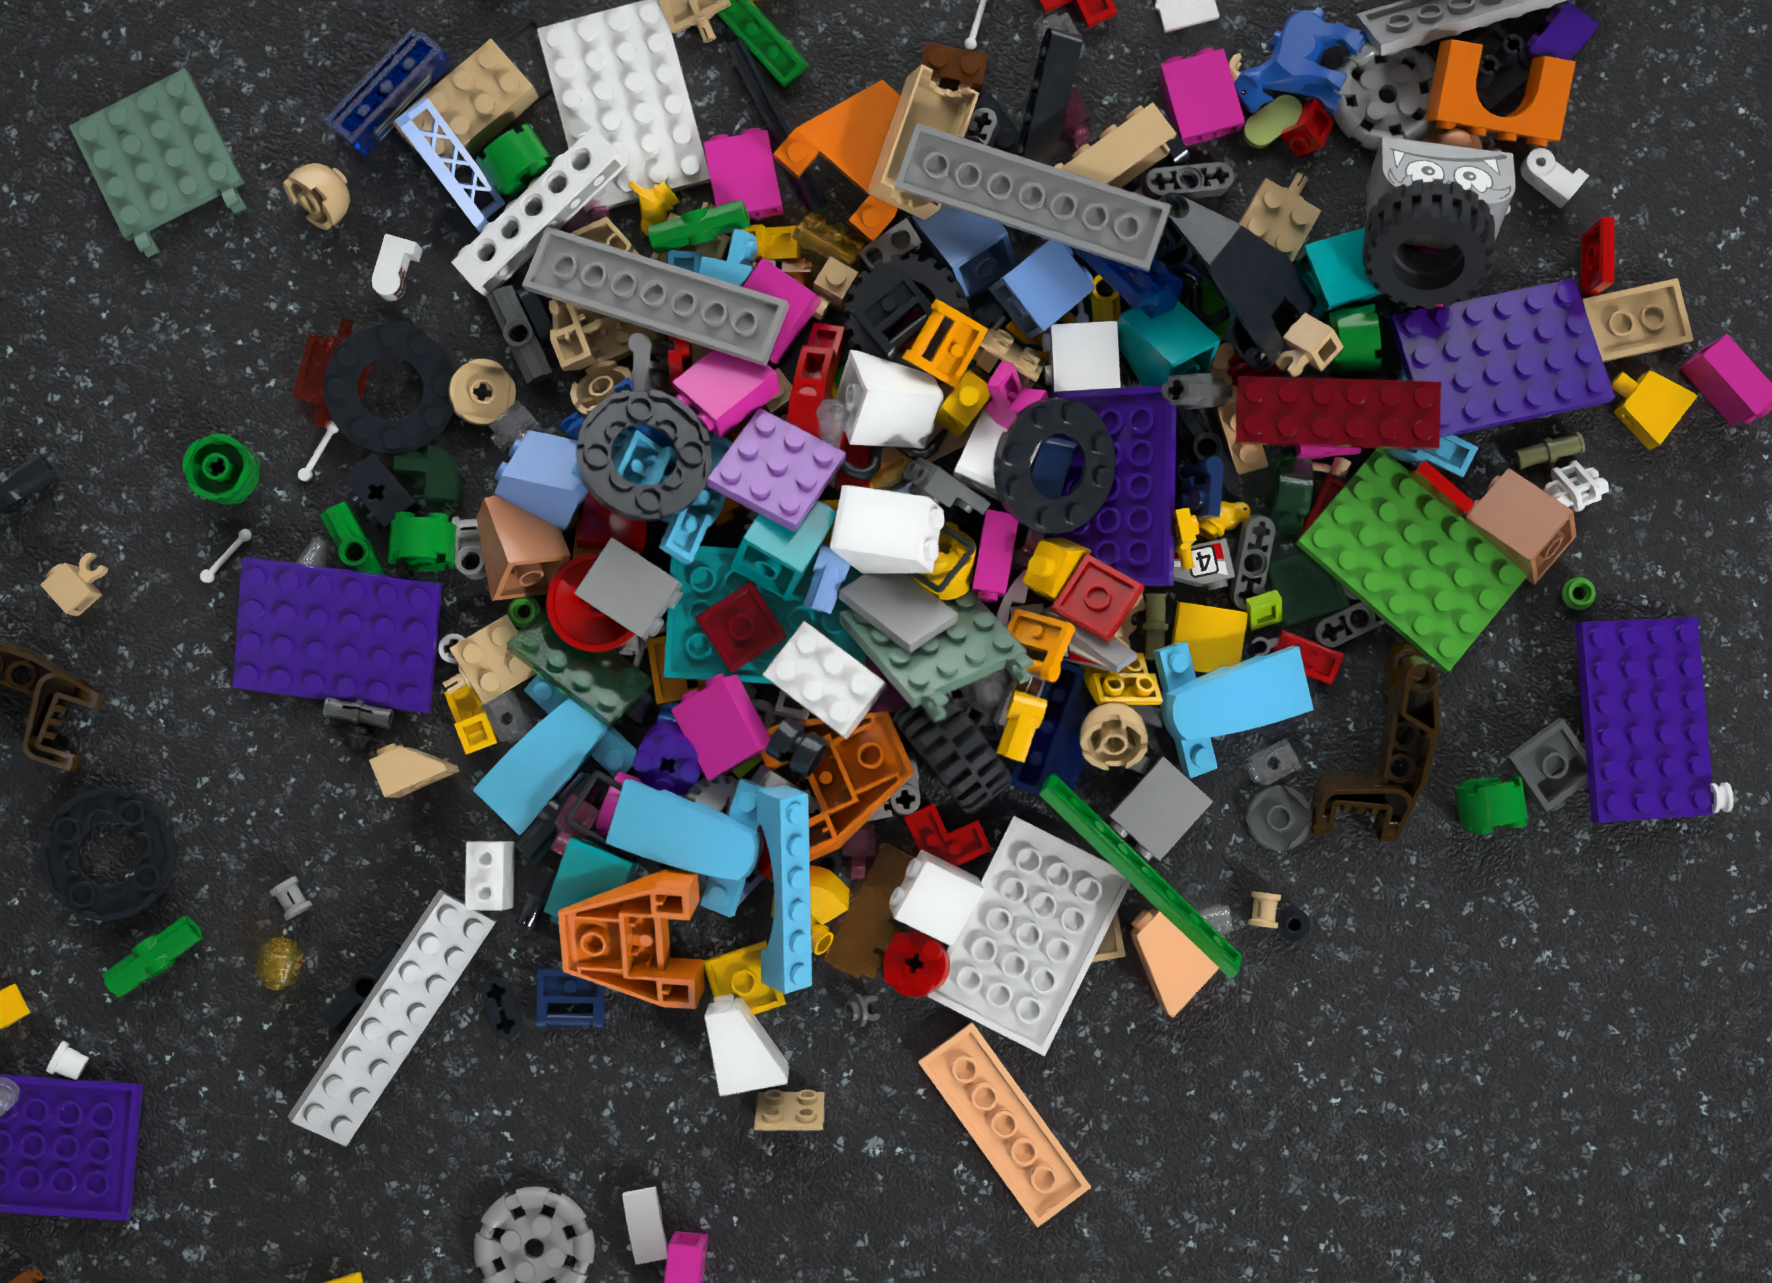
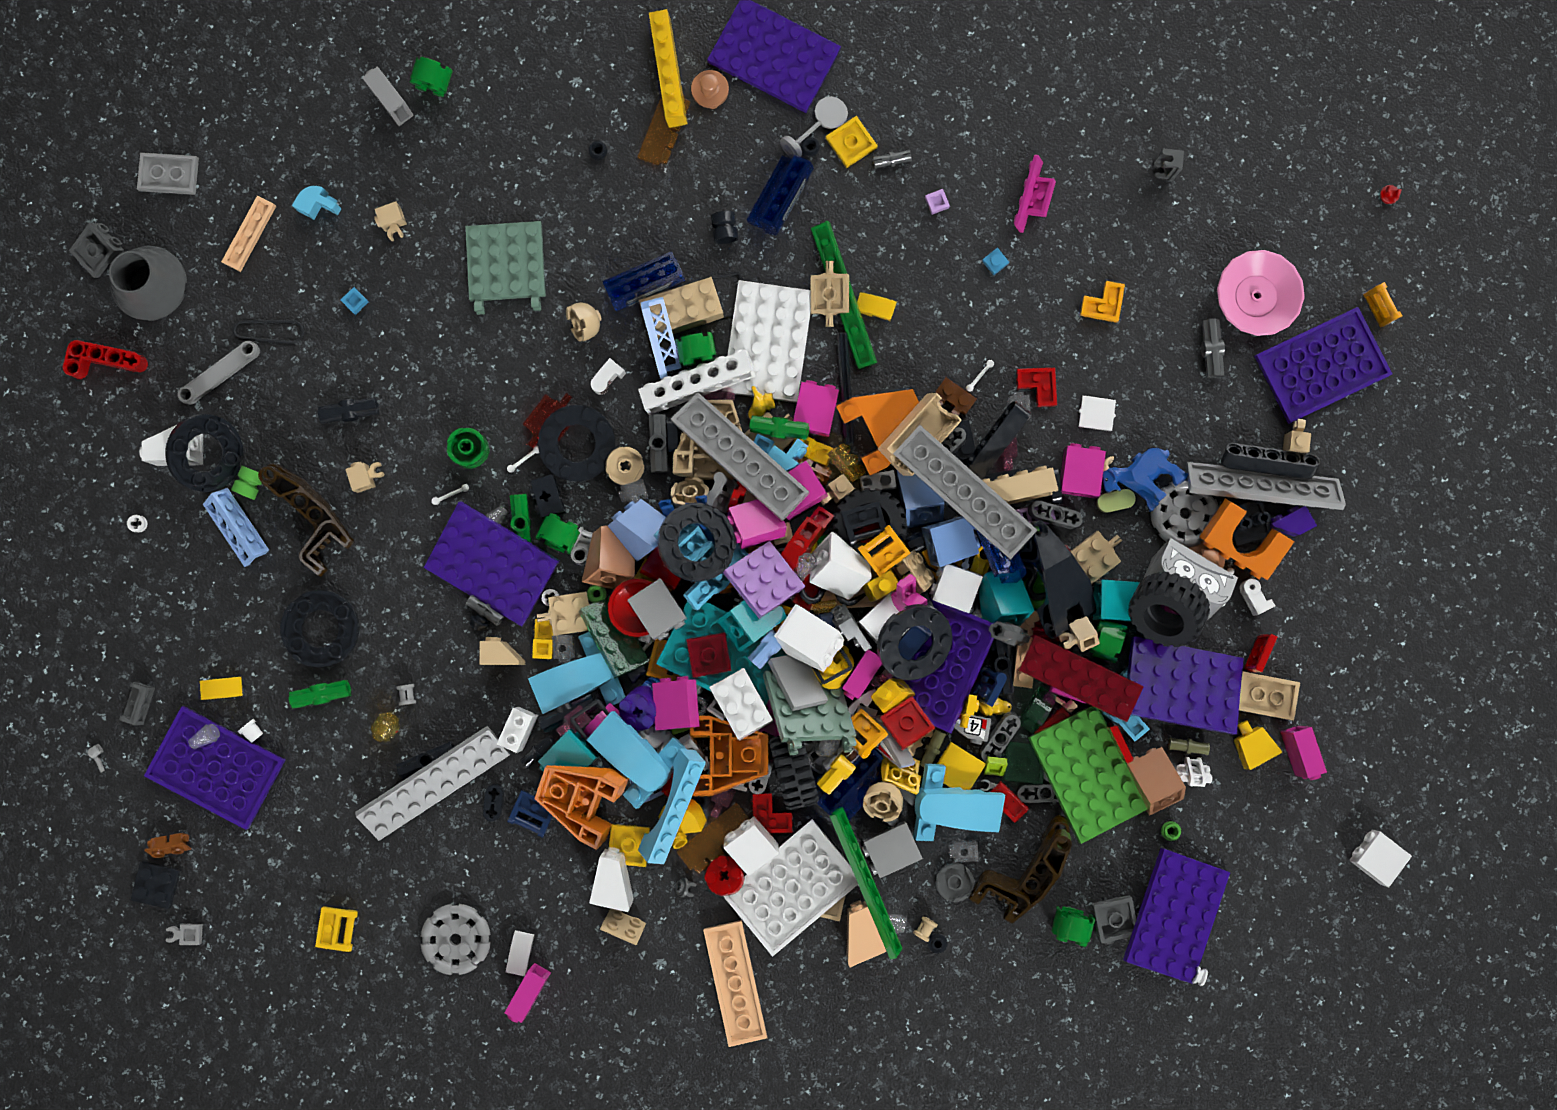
camera: 20 degrees right, 0 degrees up
(443, 474) = (585, 499): clear green brick -> none
(798, 748) = (711, 734): black wheel -> none
(1310, 130) = (1134, 515): red bracket -> none

